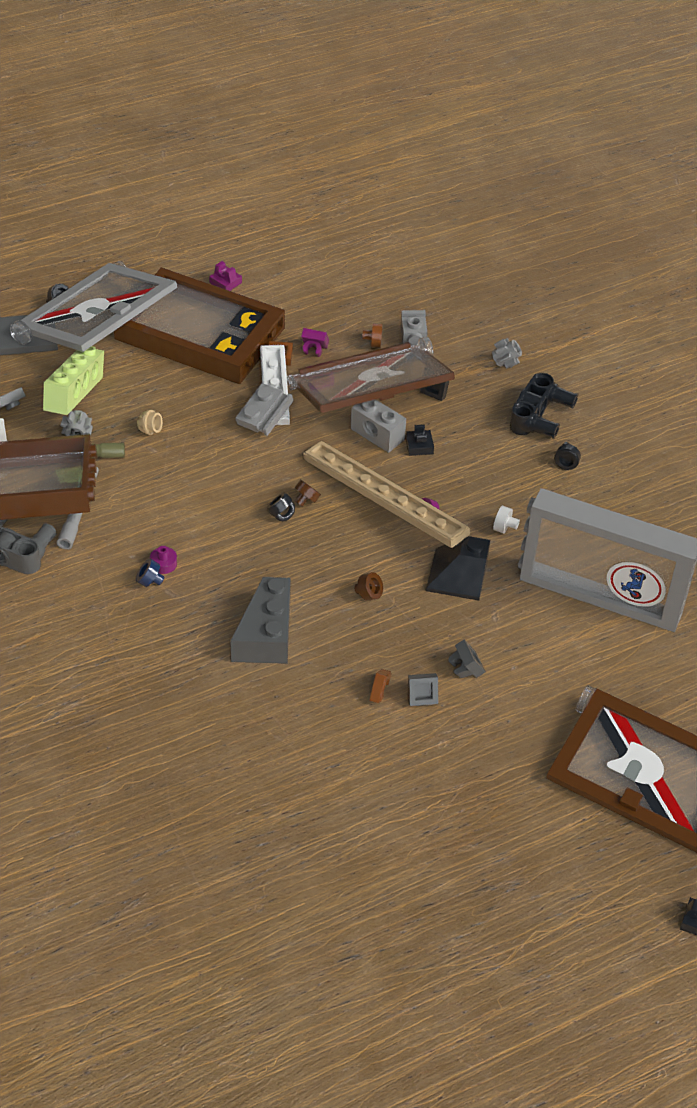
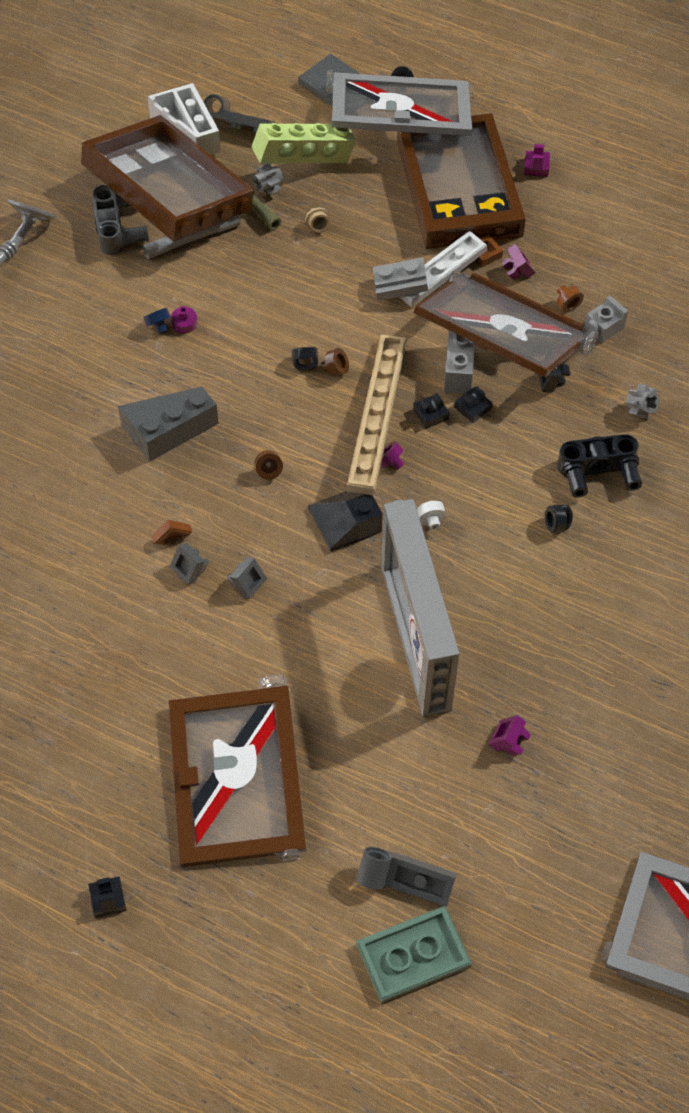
camera: 55 degrees right, 10 degrees up
(403, 467) = (431, 411): none -> black tile

